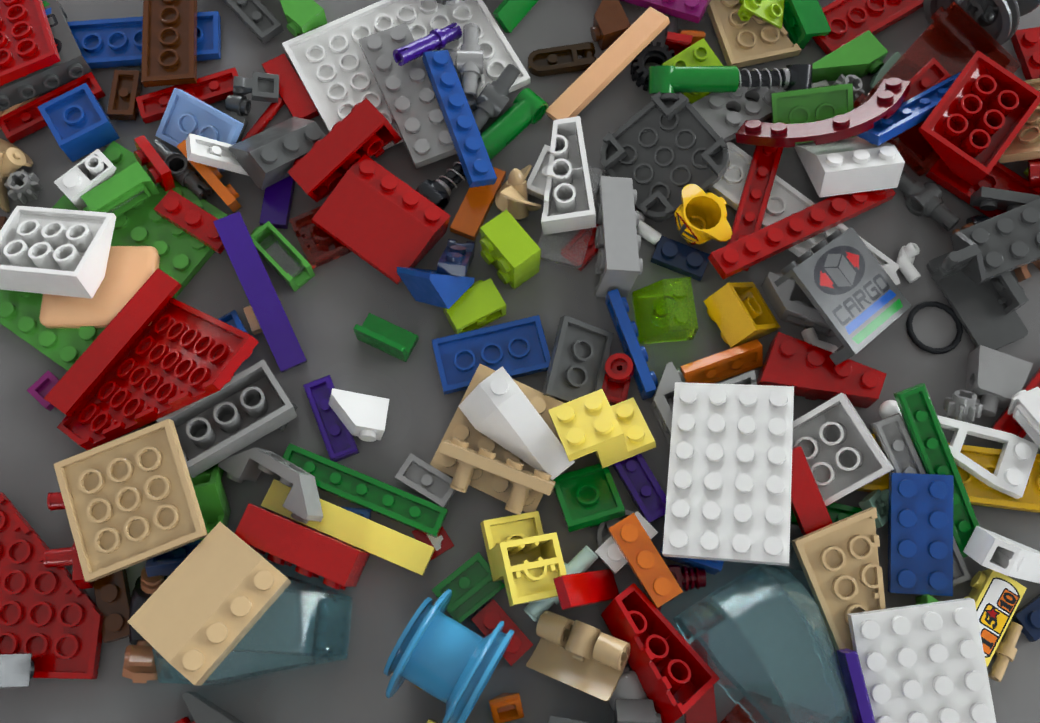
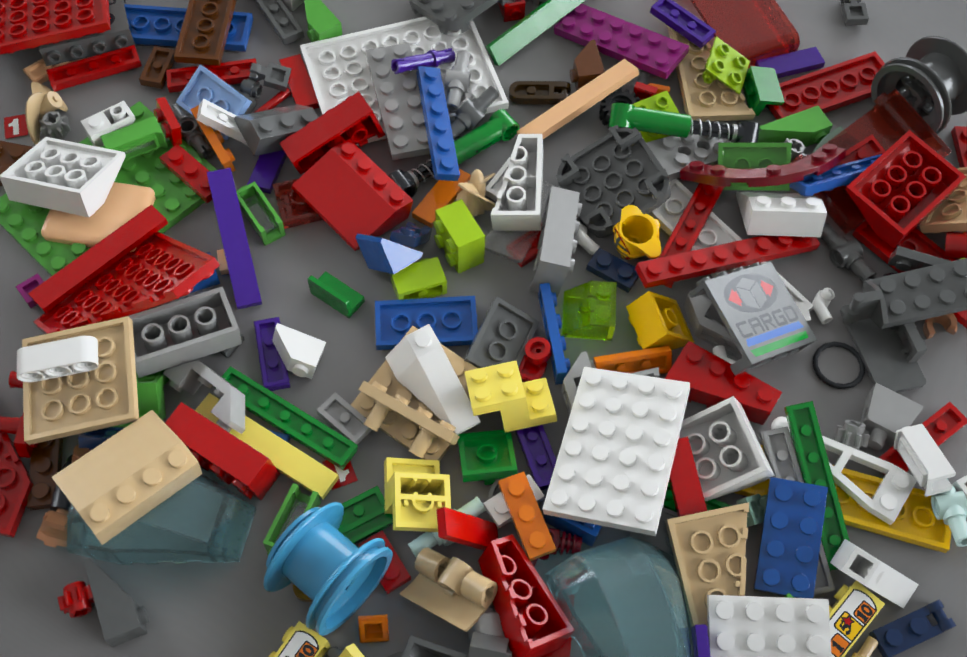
camera: 10 degrees right, 10 degrees down
(78, 122) = (113, 80): blue container -> none
(100, 484) = (57, 359): none -> white beam
(394, 608) = (292, 507): none -> bright green window

